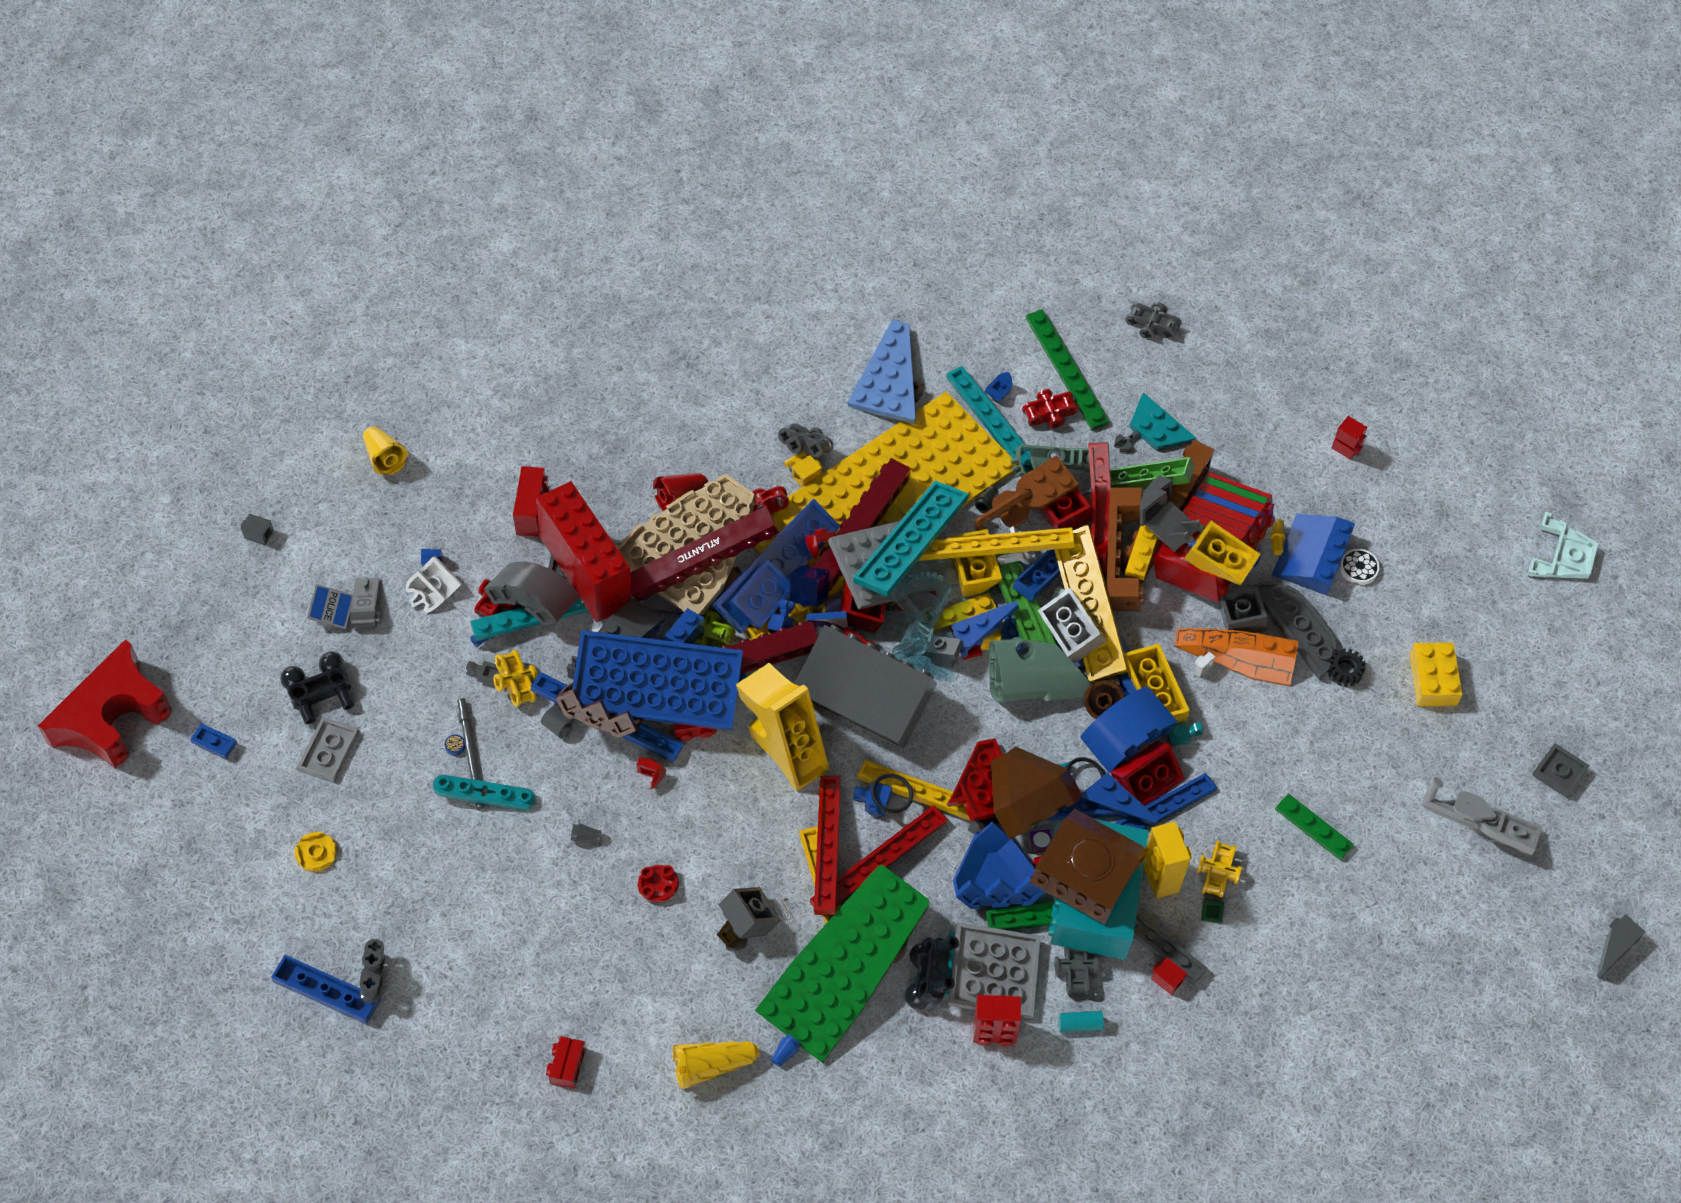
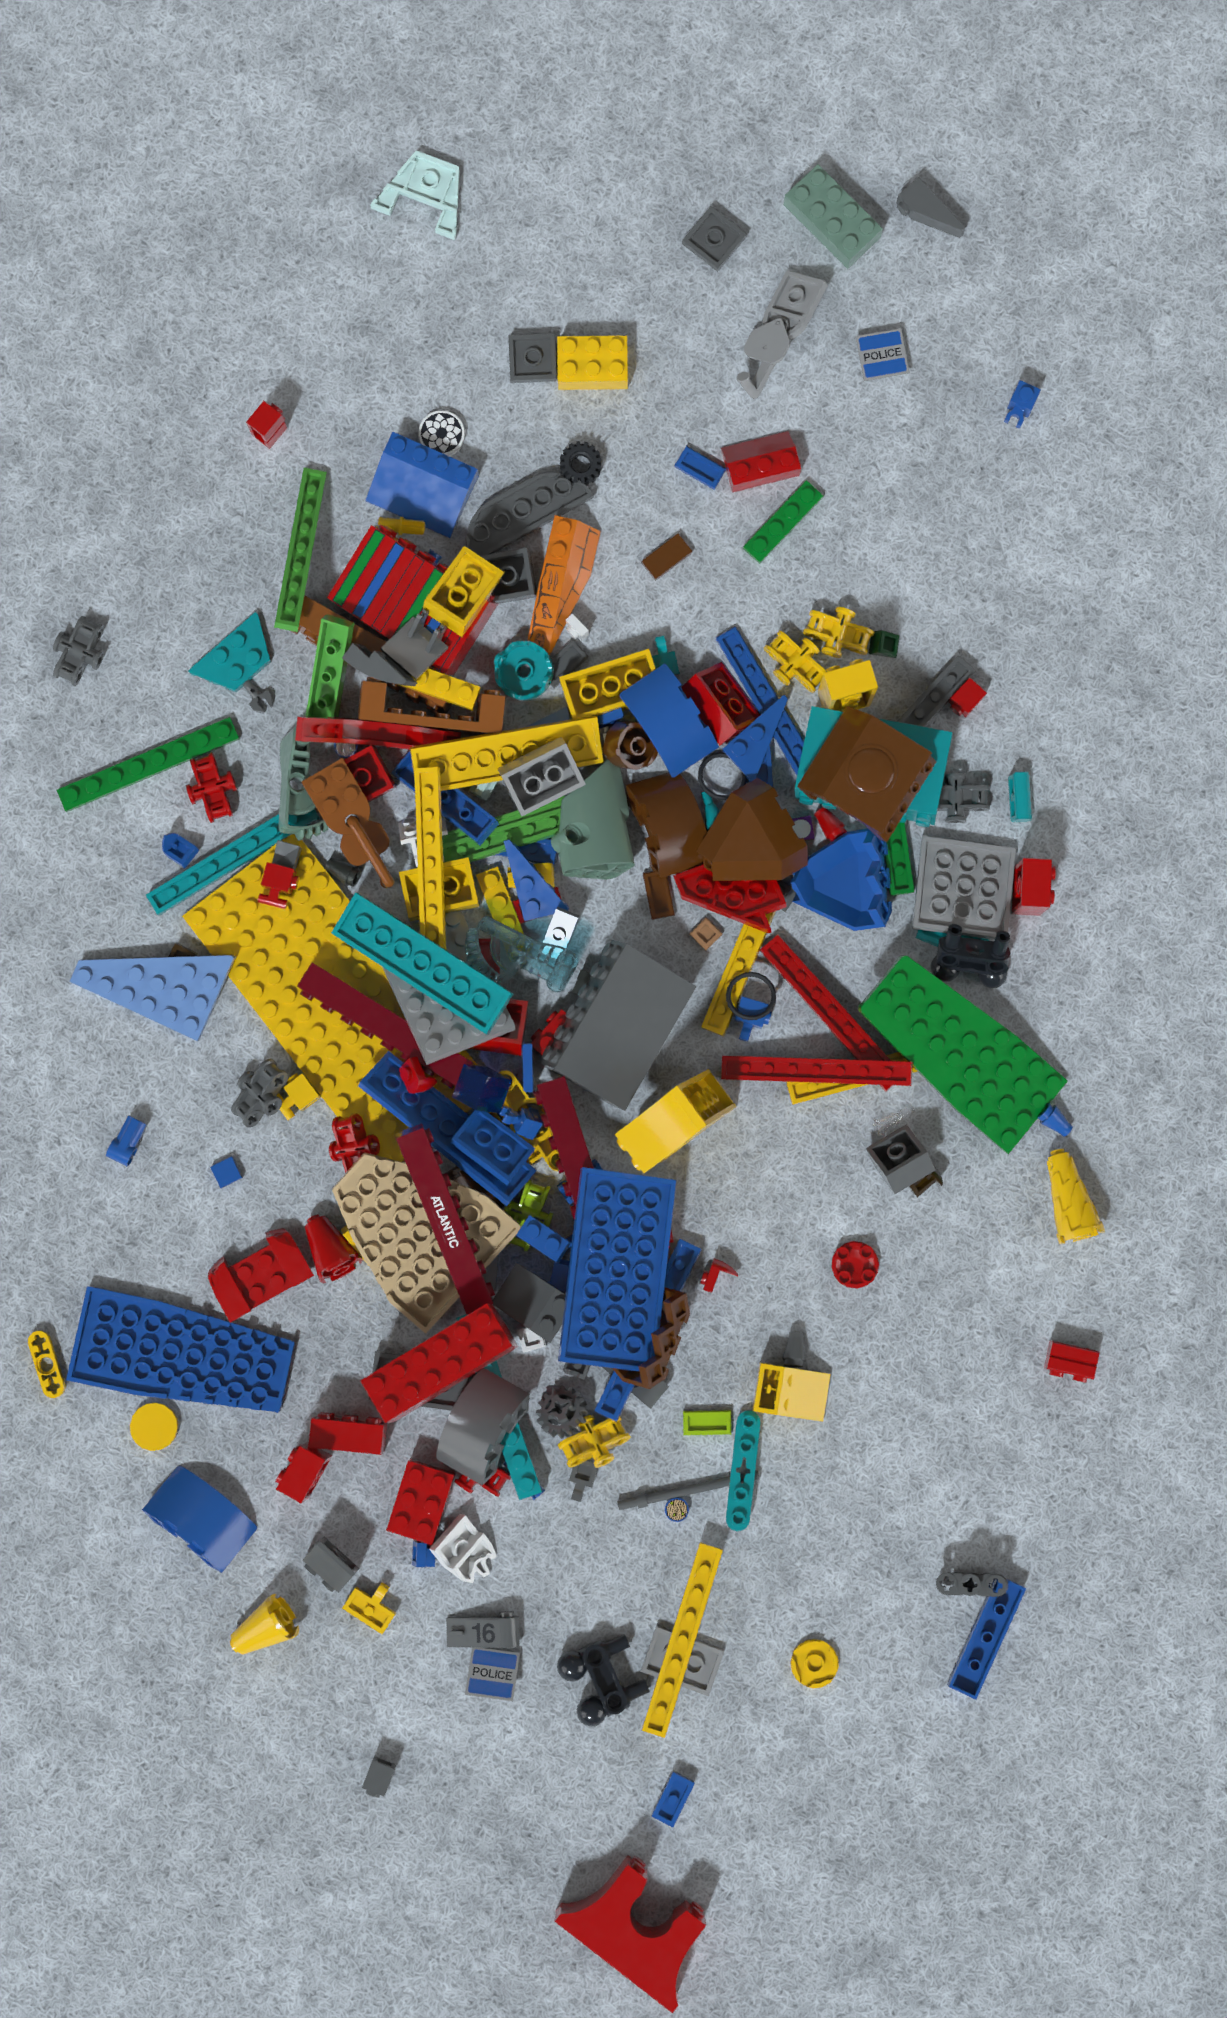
camera: 85 degrees left, 25 degrees up
(345, 744) = (682, 1640): none -> yellow plate
(391, 522) = (369, 1608): none -> yellow plate
(429, 493) = (330, 1565): none -> dark grey slope
(469, 407) = (200, 1517): none -> blue panel
(474, 554) = (420, 1501): none -> red brick
(500, 466) = (303, 1472): none -> red brick
(526, 768) = (707, 1422): none -> lime tile
(540, 653) = (560, 1411): none -> dark grey gear
(544, 379) = (154, 1426): none -> yellow tile
(549, 828) = (791, 1392): none -> yellow slope
(596, 304) = (37, 1360): none -> yellow beam
(600, 393) = (176, 1353): none -> blue wing
(658, 442) = (258, 1275): none -> red piece
(742, 424) = (226, 1172): none -> blue tile
(763, 355) = (125, 1143): none -> blue piece
(945, 766) = (706, 934): none -> medium nougat tile
(976, 449) = (278, 880): none -> red brick
(978, 730) = (658, 896): none -> reddish brown tile
(997, 456) = (286, 854): none -> dark grey slope
(1043, 731) = (671, 821): none -> reddish brown panel
(1163, 613) = (507, 670): none -> teal plate
(1176, 659) = (567, 661): none -> dark grey tile
(1195, 830) = (790, 655): none -> yellow axle
(1248, 455) = (300, 550): none -> bright green plate
(1273, 735) = (666, 557): none -> reddish brown tile
(1354, 761) = (700, 468): none -> blue tile
(1365, 806) = (761, 461): none -> red slope
(1433, 627) = (532, 358): none -> dark grey plate
(1450, 1023) = (1022, 402): none -> blue brick
(1476, 905) = (882, 354): none -> piece
(1596, 863) = (832, 216): none -> sand green brick

